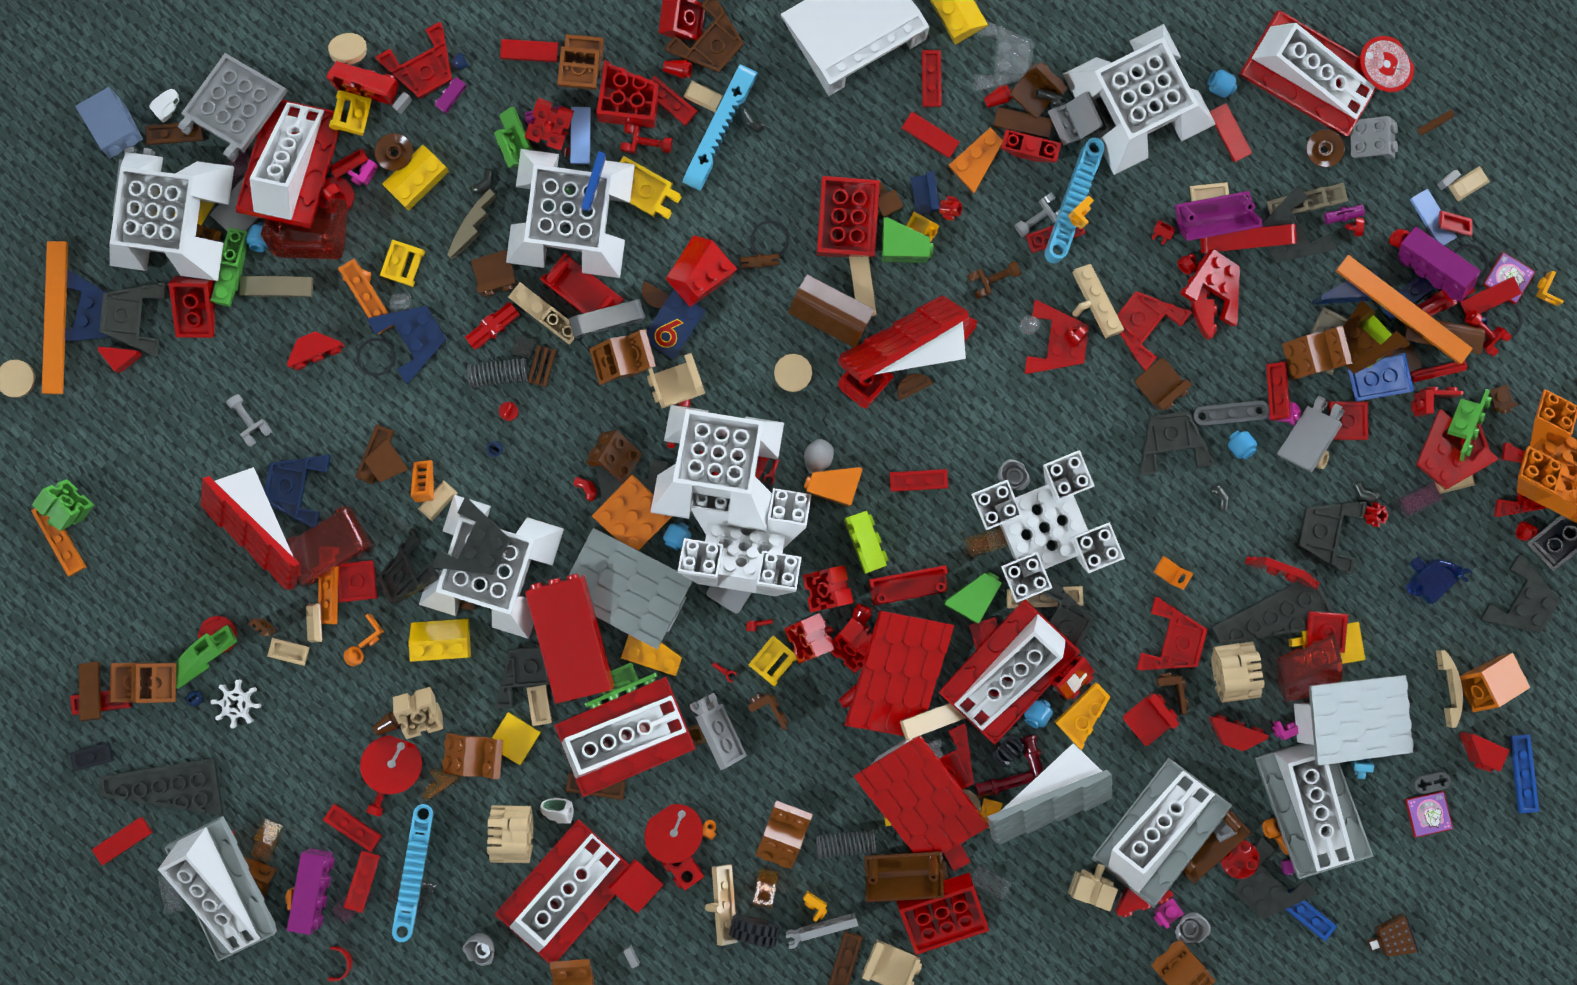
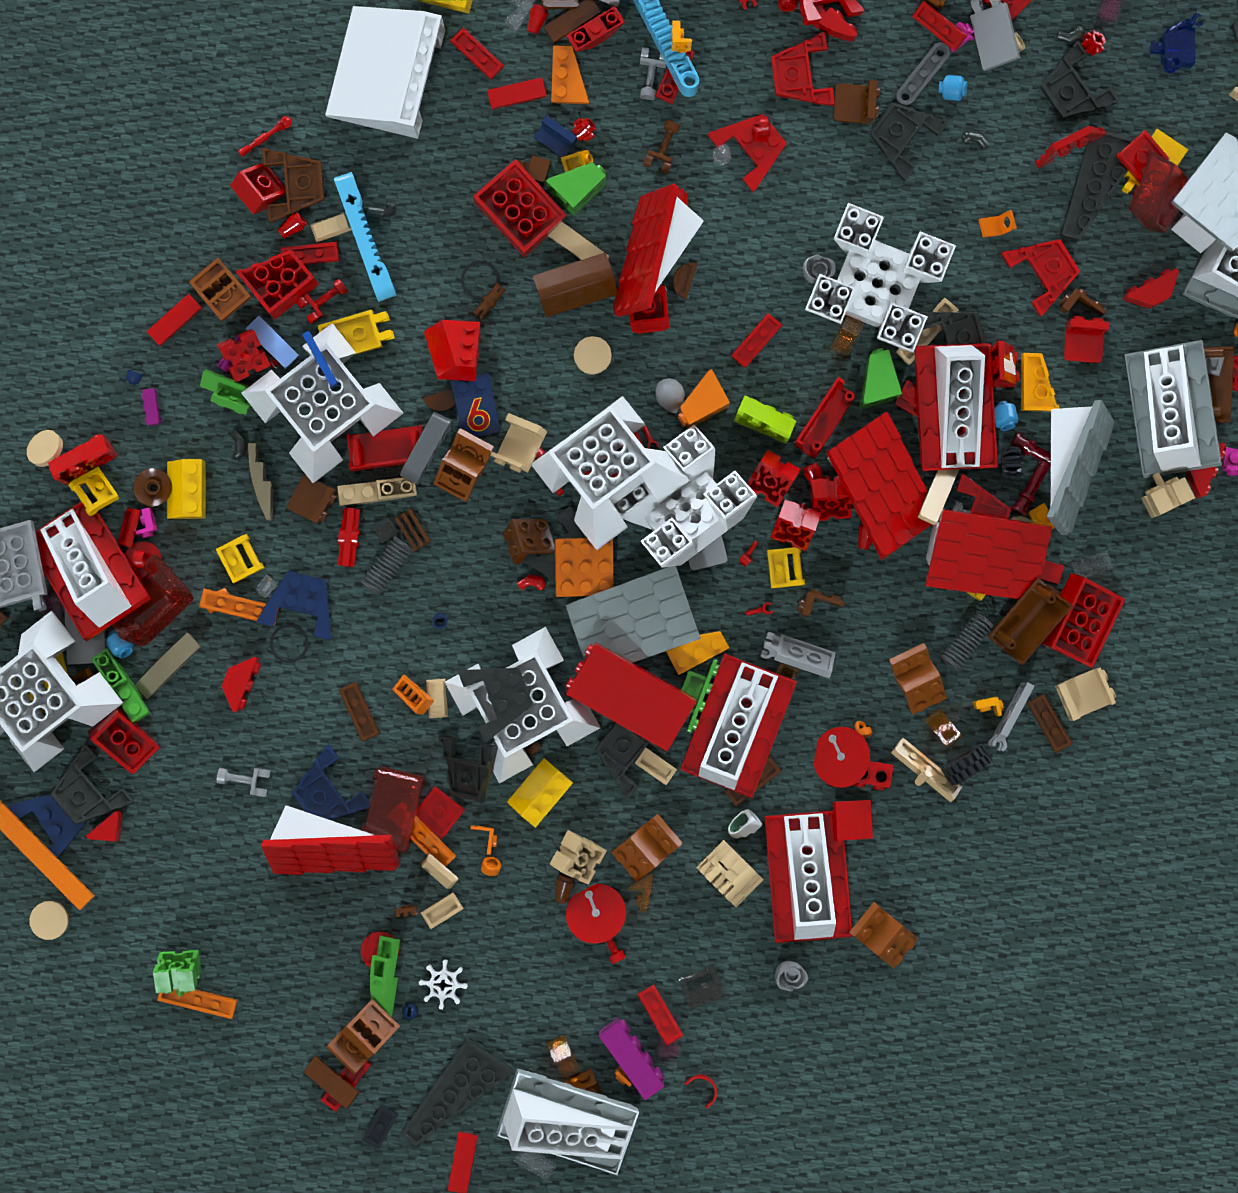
camera: 45 degrees left, 0 degrees up
(352, 828) = (614, 985): red tile -> none
(382, 463) = (372, 710): reddish brown torso -> none
(402, 103) = (122, 446): light grey tile -> none
(412, 873) = (689, 971): medium azure gear -> none
(426, 71) = (116, 408): red wing -> none
(508, 411) = (422, 585): red tile -> none
(517, 738) = (665, 803): yellow tile -> none
(631, 956) = (900, 872): light grey tile -> none
(675, 535) = (630, 550): dark azure head -> none
(1097, 301) = (751, 90): tan plate -> none
(1235, 672) = (1108, 249): tan piece -> none
(1290, 730) = (1187, 252): dark pink bracket -> none

